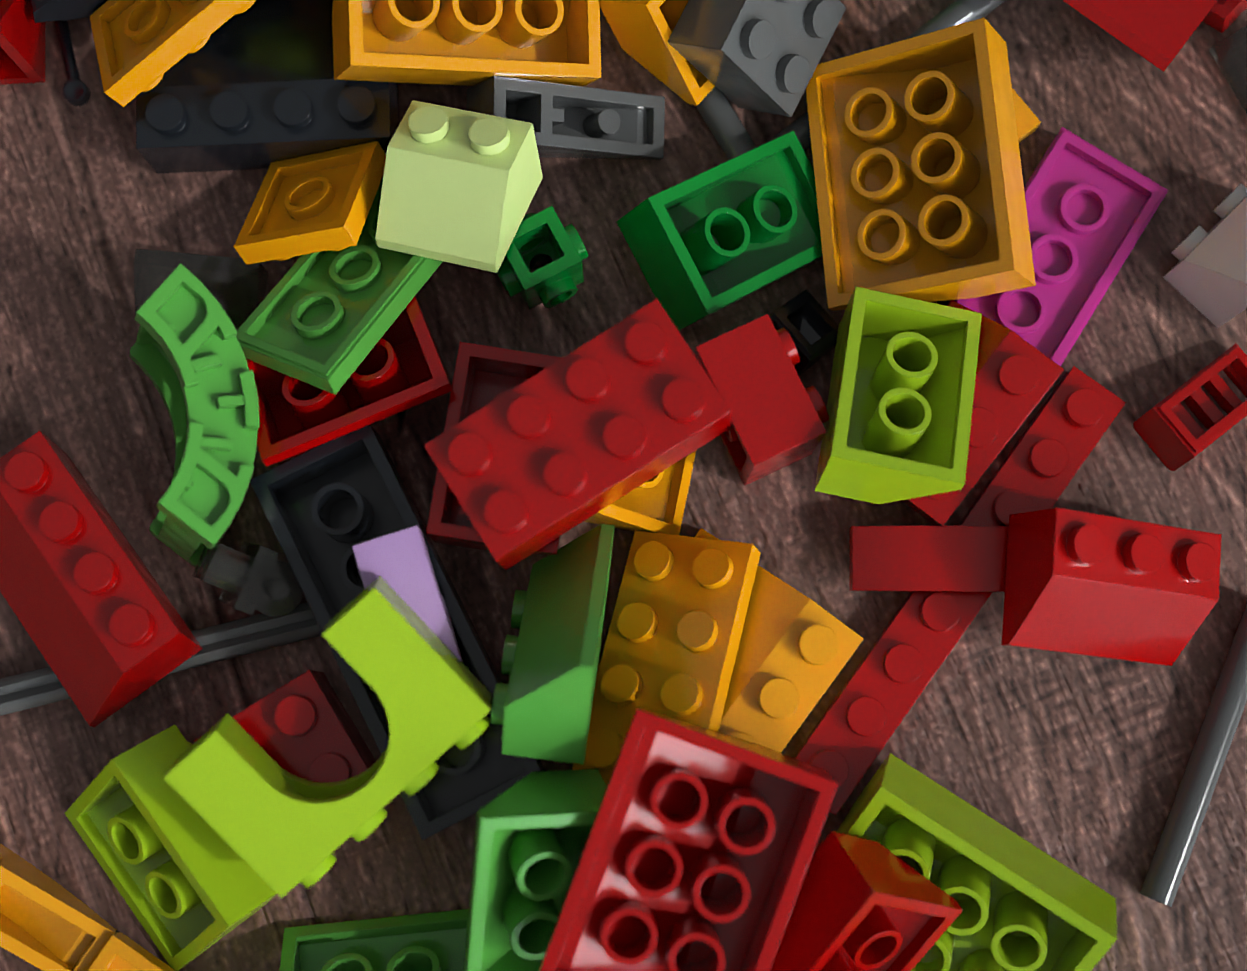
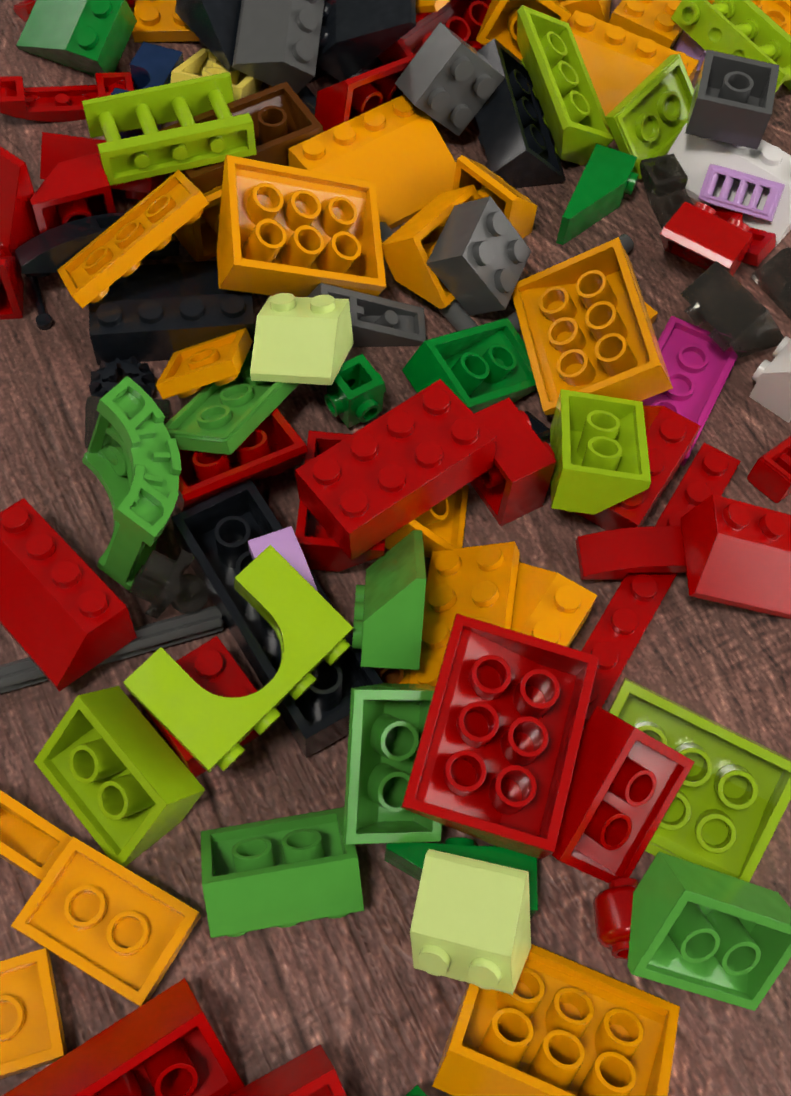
camera: 10 degrees left, 20 degrees down
(213, 231) = (106, 376): none -> black gear
(1155, 141) = (730, 312): none -> clear smoke slope

